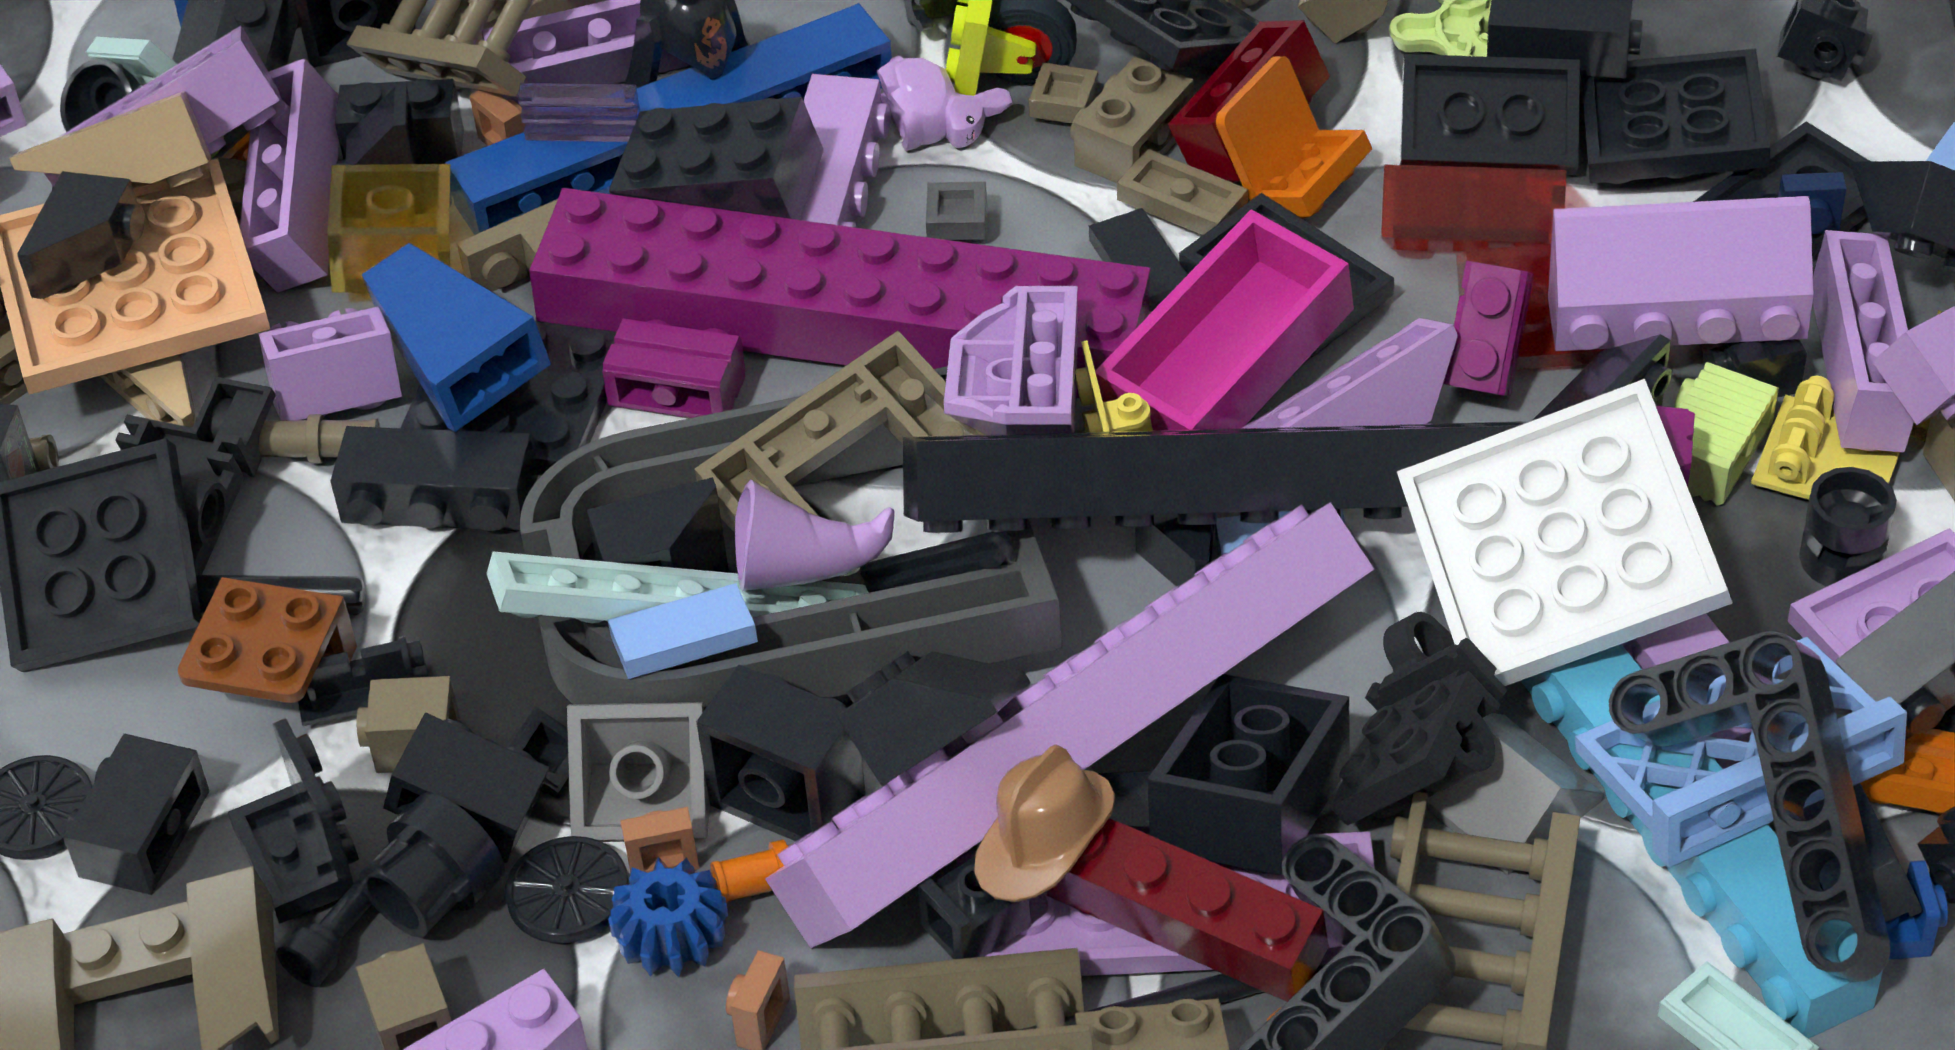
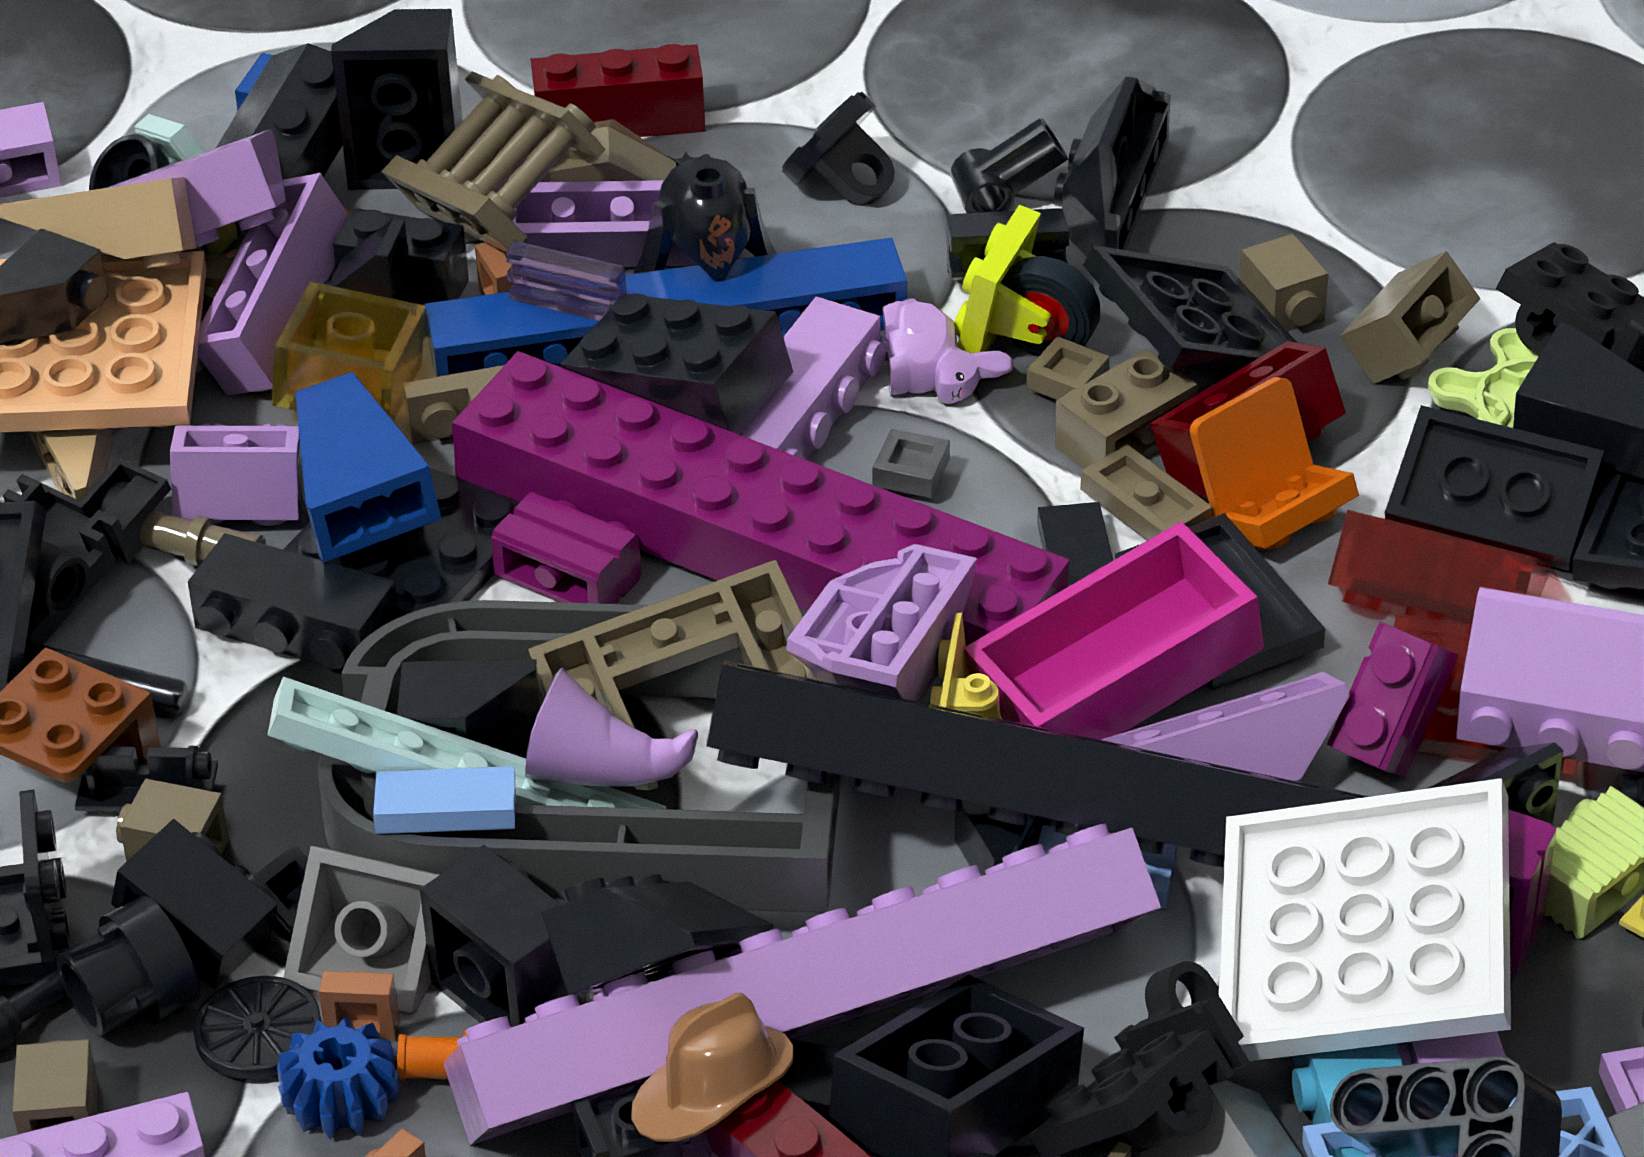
camera: 15 degrees right, 5 degrees down
(940, 561) = (740, 795): black axle -> none

